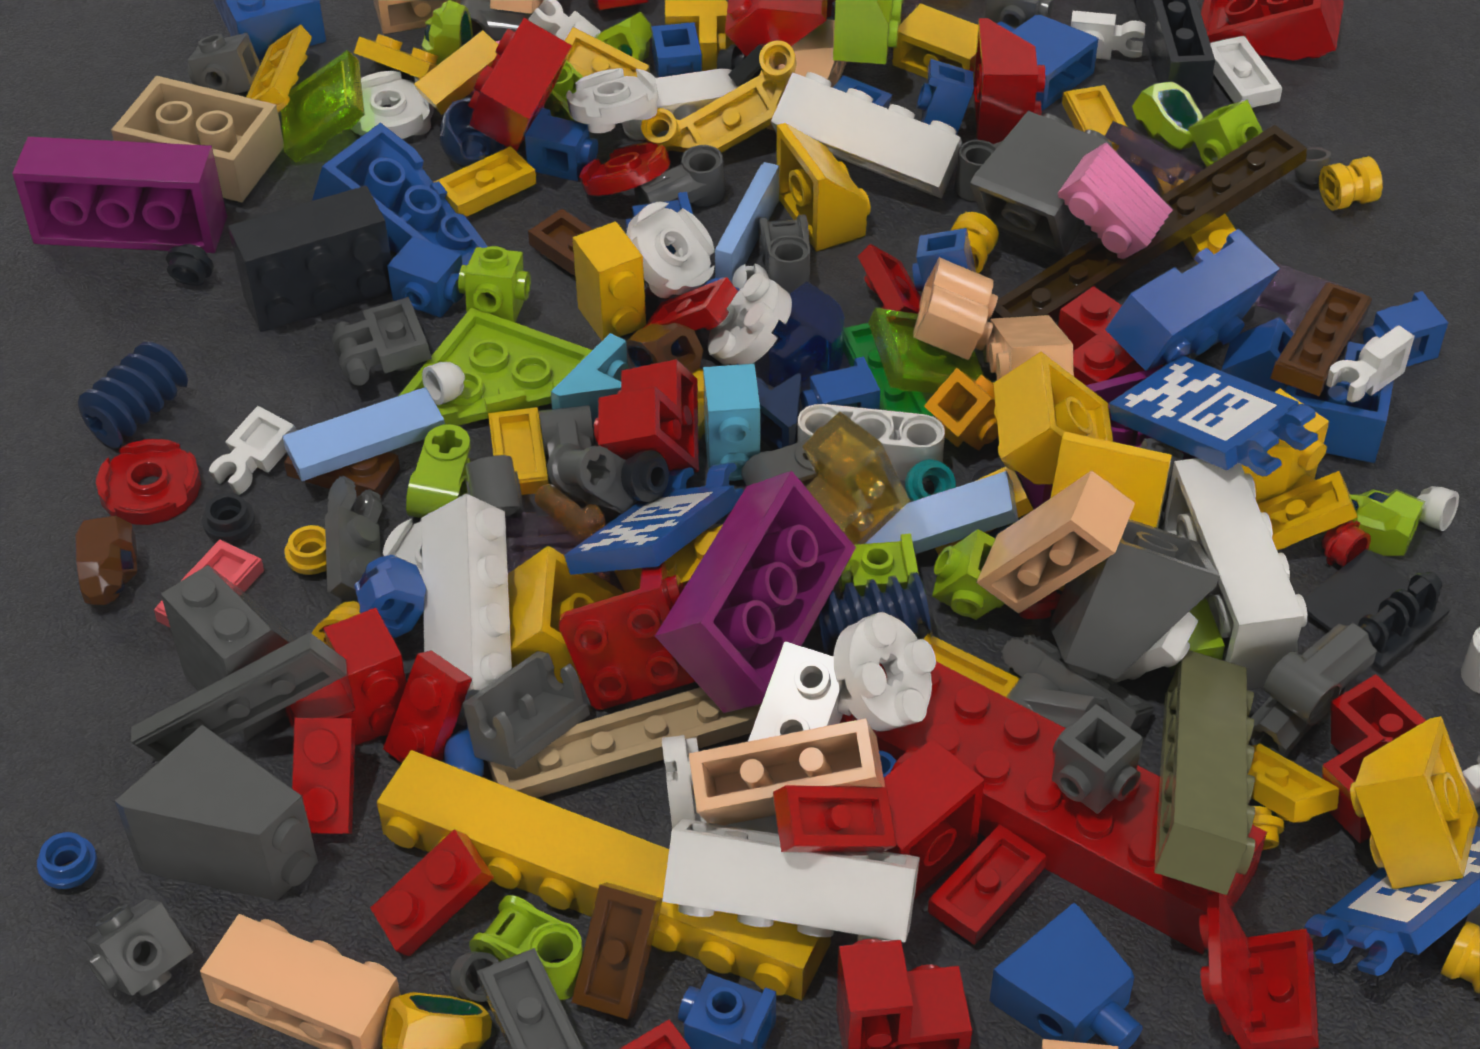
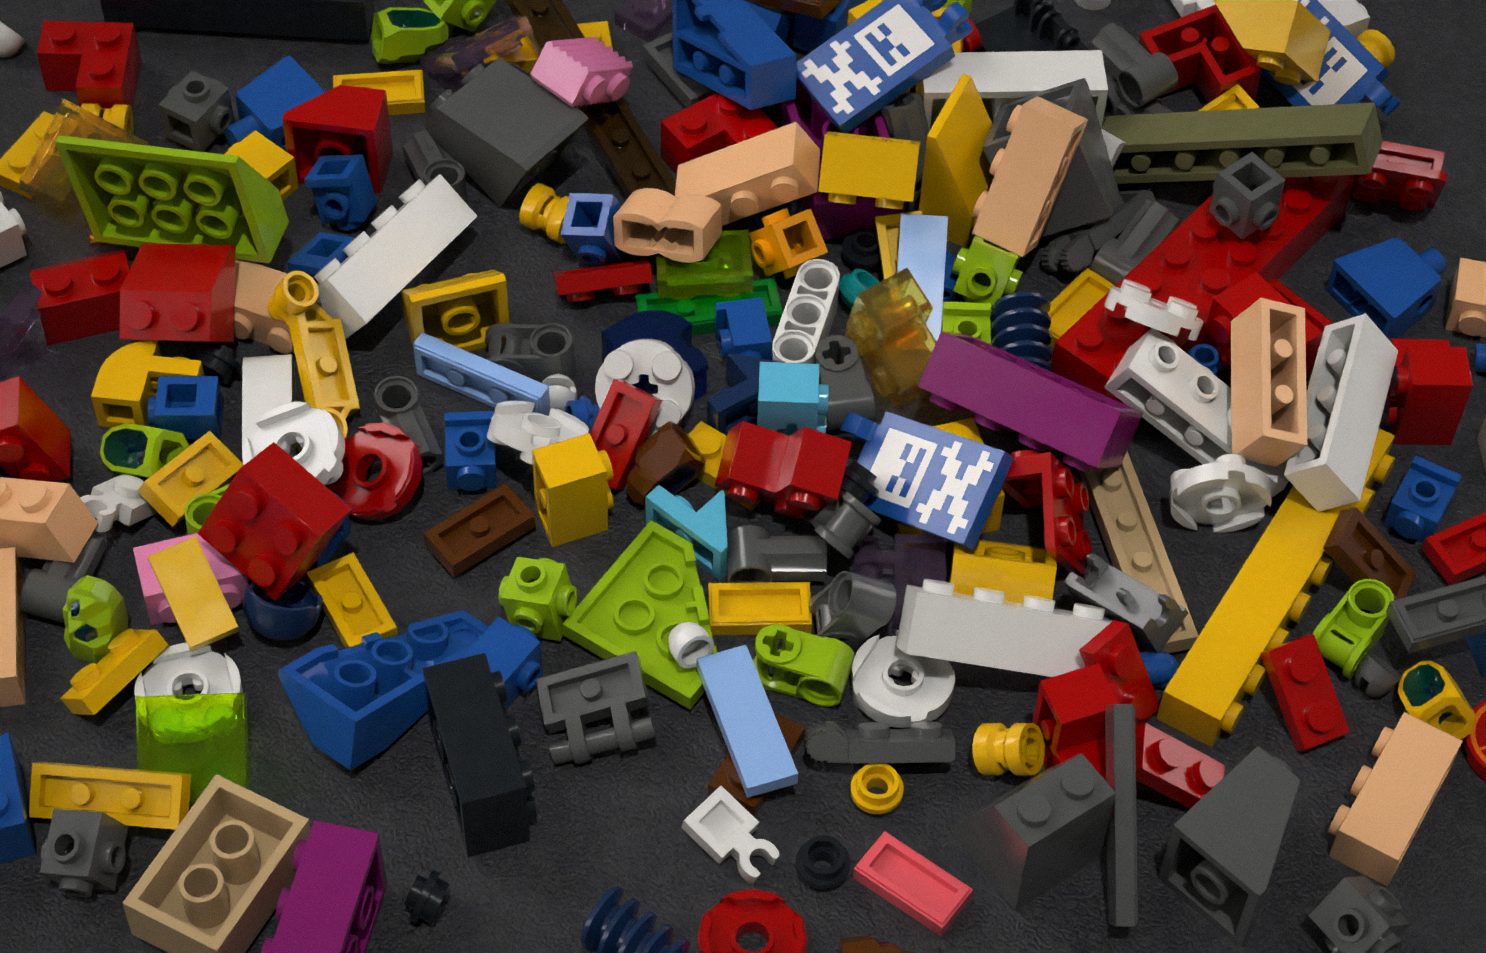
camera: 85 degrees left, 5 degrees up
(395, 590) = (977, 695): blue rock -> none
(568, 514) = (891, 547): clear orange arm -> none
(747, 68) = (254, 330): black tile -> none
(833, 819) = (1330, 360): red plate -> none
(1110, 35) = (263, 51): white plate -> none

